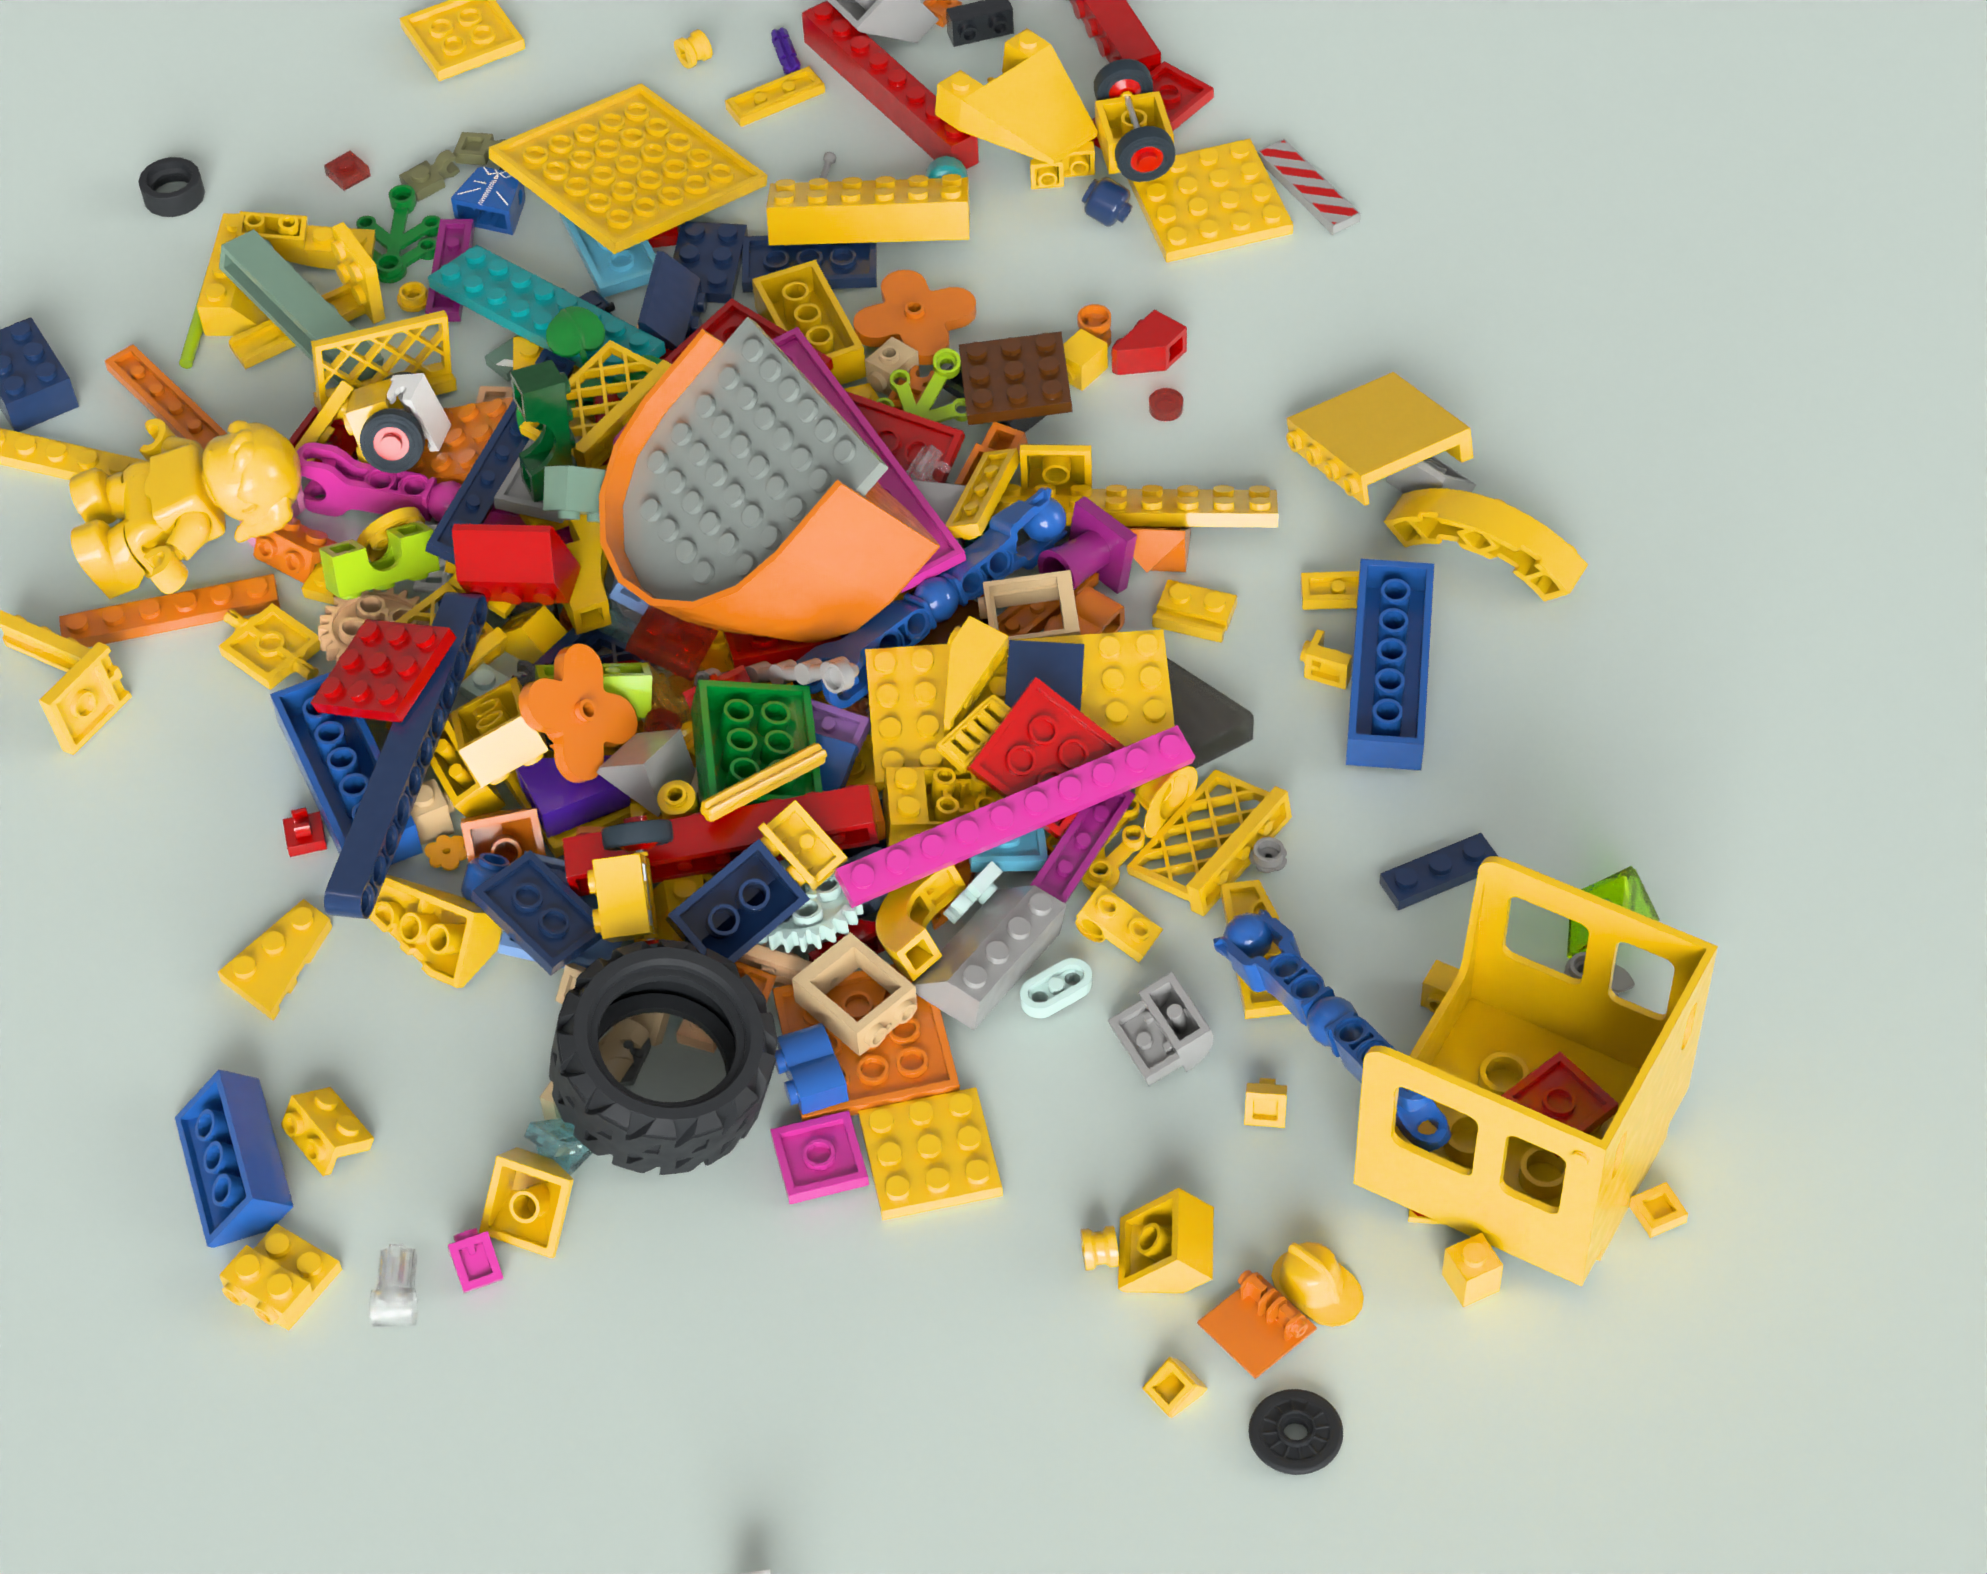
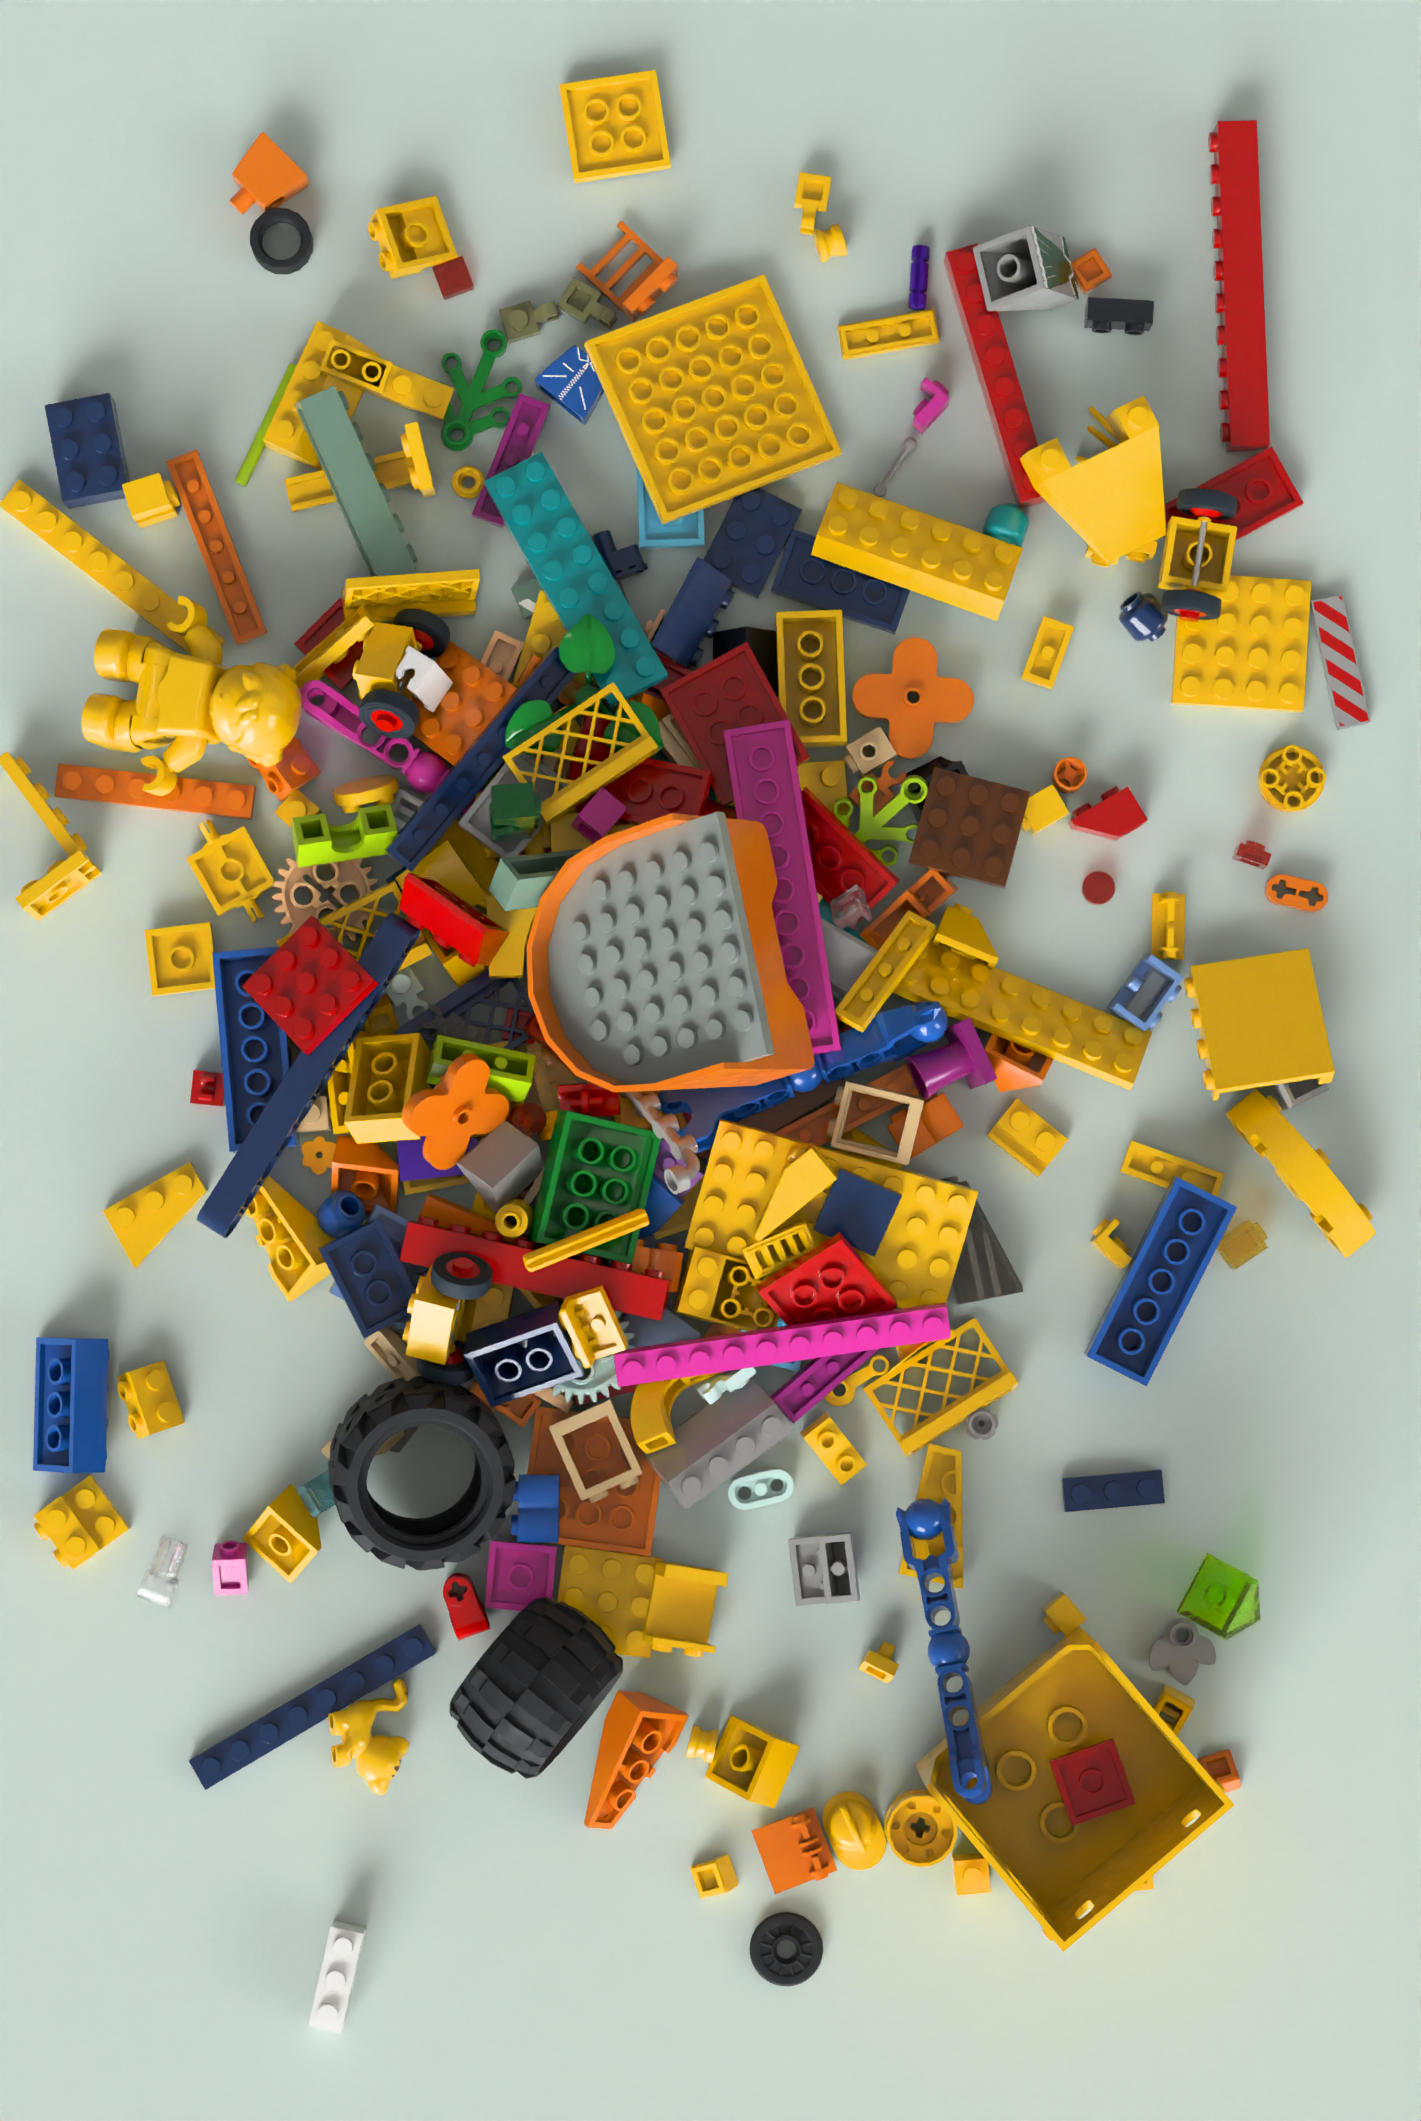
camera: 15 degrees right, 35 degrees up
(96, 383) = (151, 500): none -> yellow brick
(142, 142) = (266, 177): none -> orange torso
(240, 732) = (180, 958): none -> yellow plate
(294, 148) = (411, 236): none -> yellow plate
(524, 114) = (643, 292): none -> orange plate
(619, 1375) = (312, 1706): none -> dark blue plate
(664, 26) = (811, 196): none -> yellow plate
(716, 1389) = (378, 1755): none -> yellow animal
(765, 1203) = (465, 1612): none -> red piece
(836, 123) = (930, 410): none -> dark pink bracket
(876, 1210) = (536, 1687): none -> black tyre
(1016, 1115) = (682, 1607): none -> yellow panel
(1018, 1273) = (630, 1744): none -> orange wedge
(1029, 253) = (1047, 652): none -> yellow plate
(1248, 407) = (1168, 925): none -> yellow hinge
(1255, 455) = (1146, 993): none -> medium blue window
(1301, 333) = (1252, 854): none -> clear red plate
(1309, 275) = (1291, 779): none -> yellow tile
(1360, 351) = (1298, 885): none -> orange beam
(1389, 1233) = (932, 1842): none -> yellow wheel
(1457, 621) = (1242, 1244): none -> clear yellow brick
(1705, 1090) = (1222, 1768): none -> orange slope

